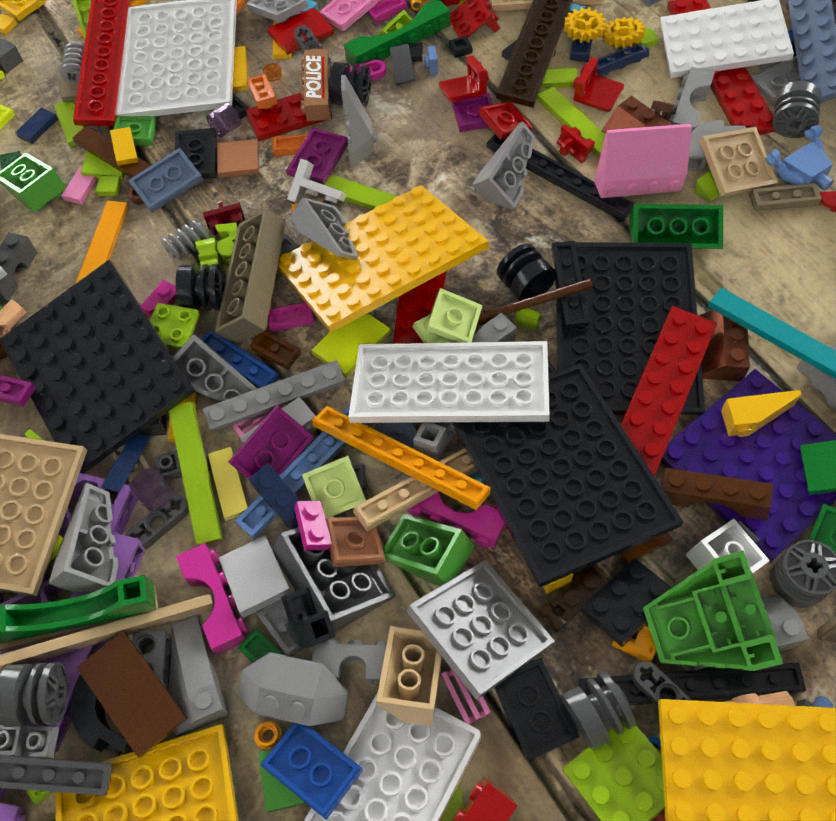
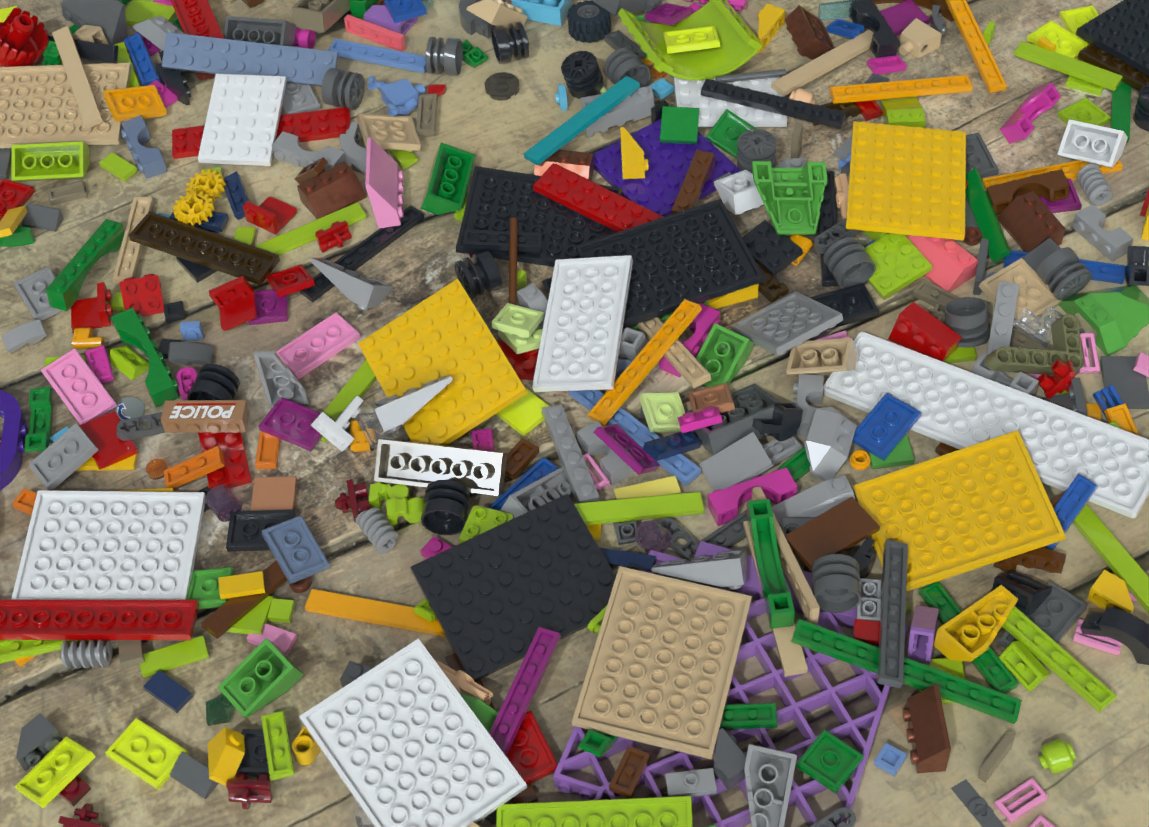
camera: 85 degrees left, 10 degrees down
(163, 574) = (729, 533): none -> dark grey tile
(338, 39) = (129, 408): none -> light grey sticker
(426, 159) = (318, 345): none -> bright pink tile

